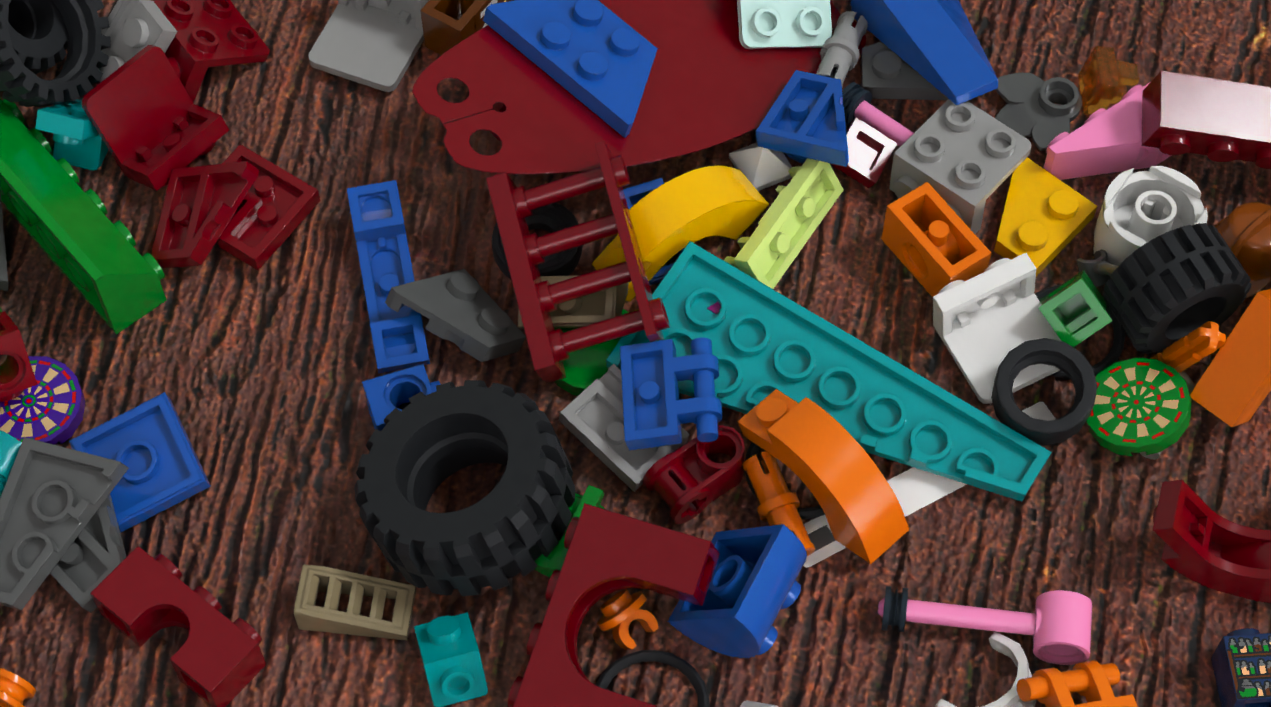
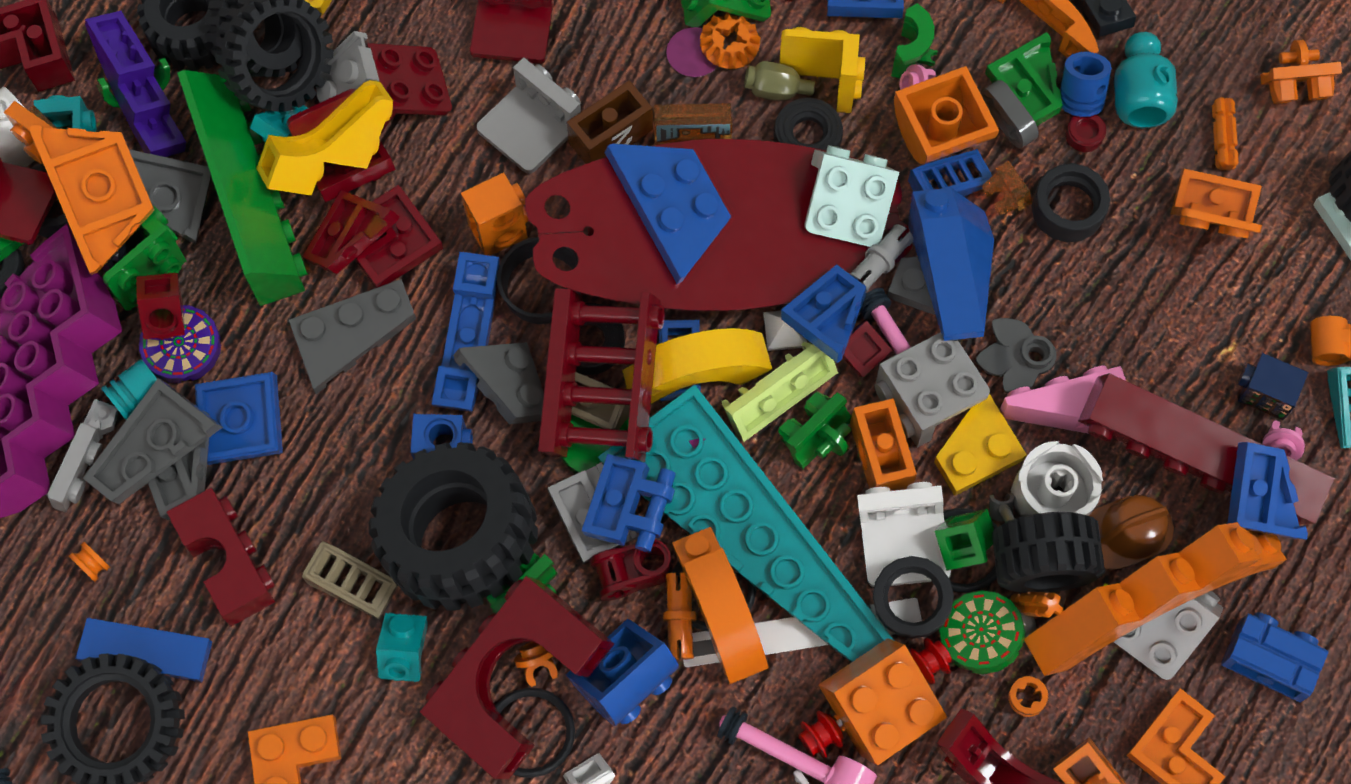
camera: 20 degrees right, 10 degrees up
(158, 102) = (343, 138): none -> yellow arch
(235, 327) = (348, 329): none -> dark grey wing
(373, 134) = (496, 214): none -> orange brick
(418, 173) = (512, 259): none -> black tyre
(857, 253) = (821, 433): none -> green hips
(1057, 519) = (880, 701): none -> orange brick
(1105, 79) = (1080, 351): clear orange tile -> none
(1230, 449) = (1019, 686): none -> orange bush

